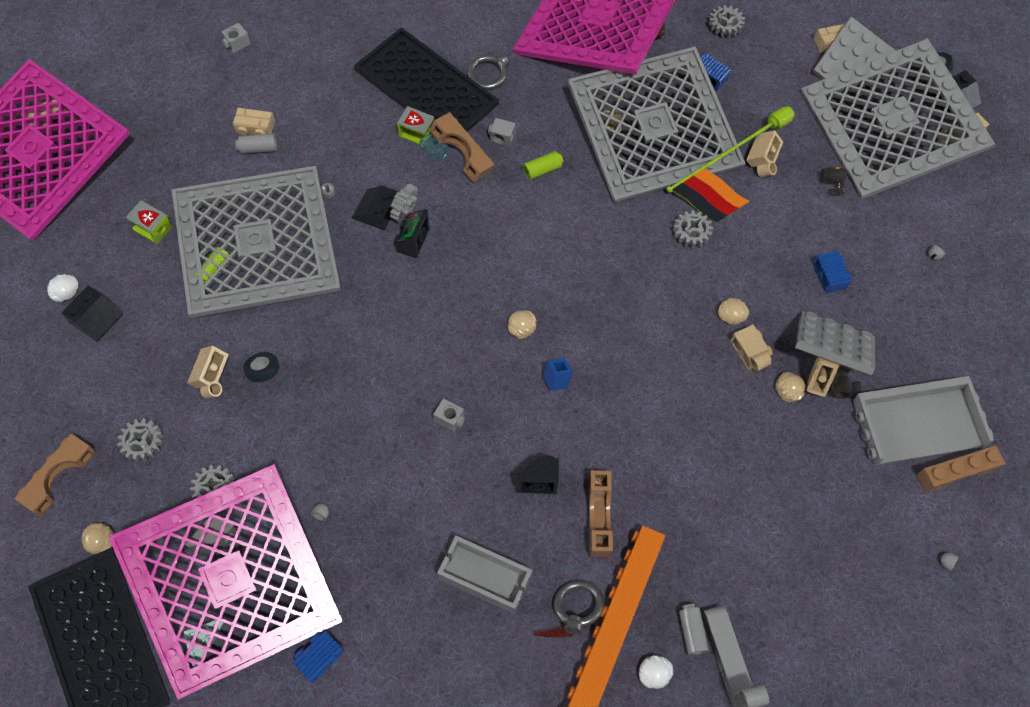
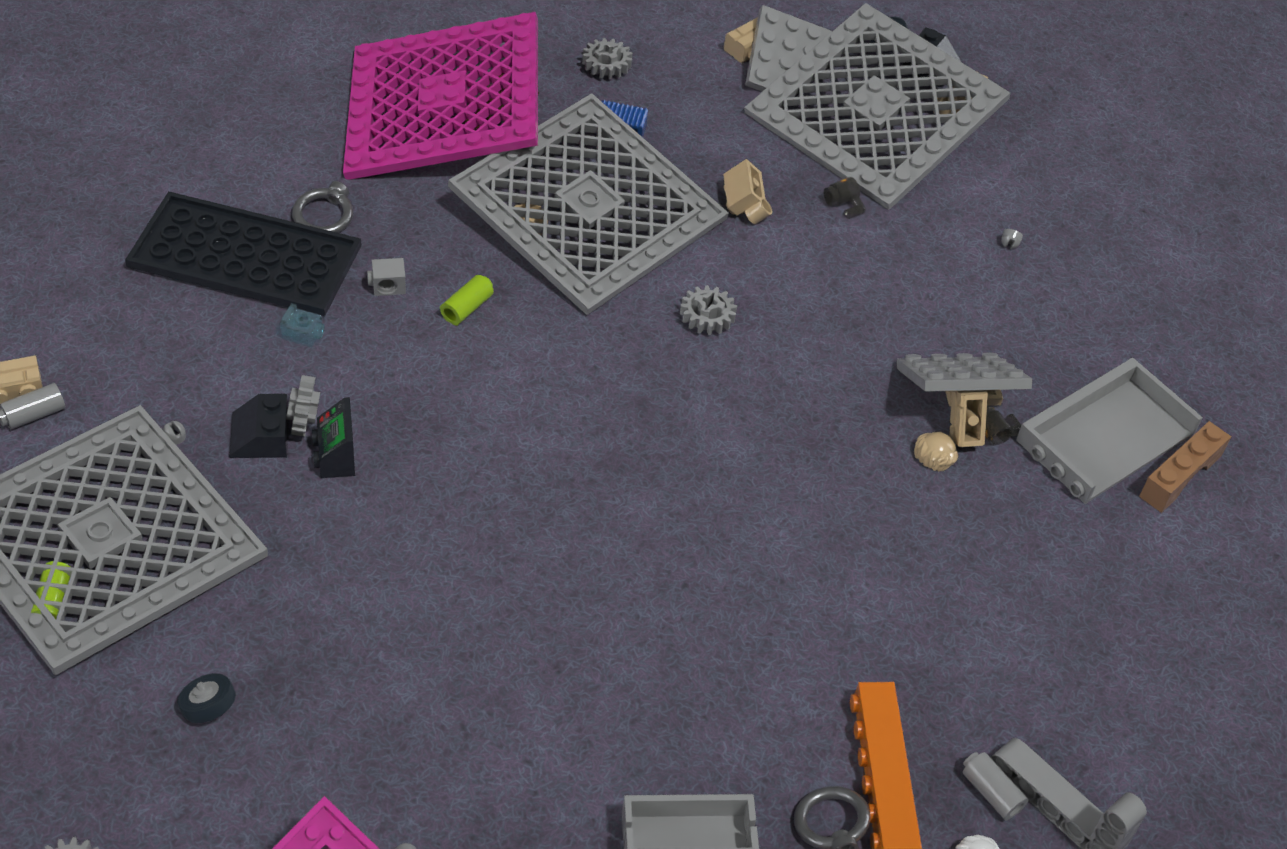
camera: 30 degrees left, 15 degrees down
(208, 371) = (128, 734): tan hinge -> none
(414, 125) = (261, 306): piece -> none
(446, 408) = (515, 644): light grey brick -> none
(449, 131) = (319, 295): medium nougat arch -> none
(522, 324) = (552, 503): tan hair -> none
(540, 476) = (695, 677): black slope -> none
(557, 374) = (639, 543): blue brick -> none
(599, 514) = (811, 720): medium nougat arch -> none
(710, 193) = (702, 260): flag -> none
(733, 311) = (814, 388): tan hair -> none
(752, 348) = (864, 423): tan hinge -> none
(832, 271) = (906, 300): blue brick -> none
(948, 560) = (1235, 575): light grey hinge -> none

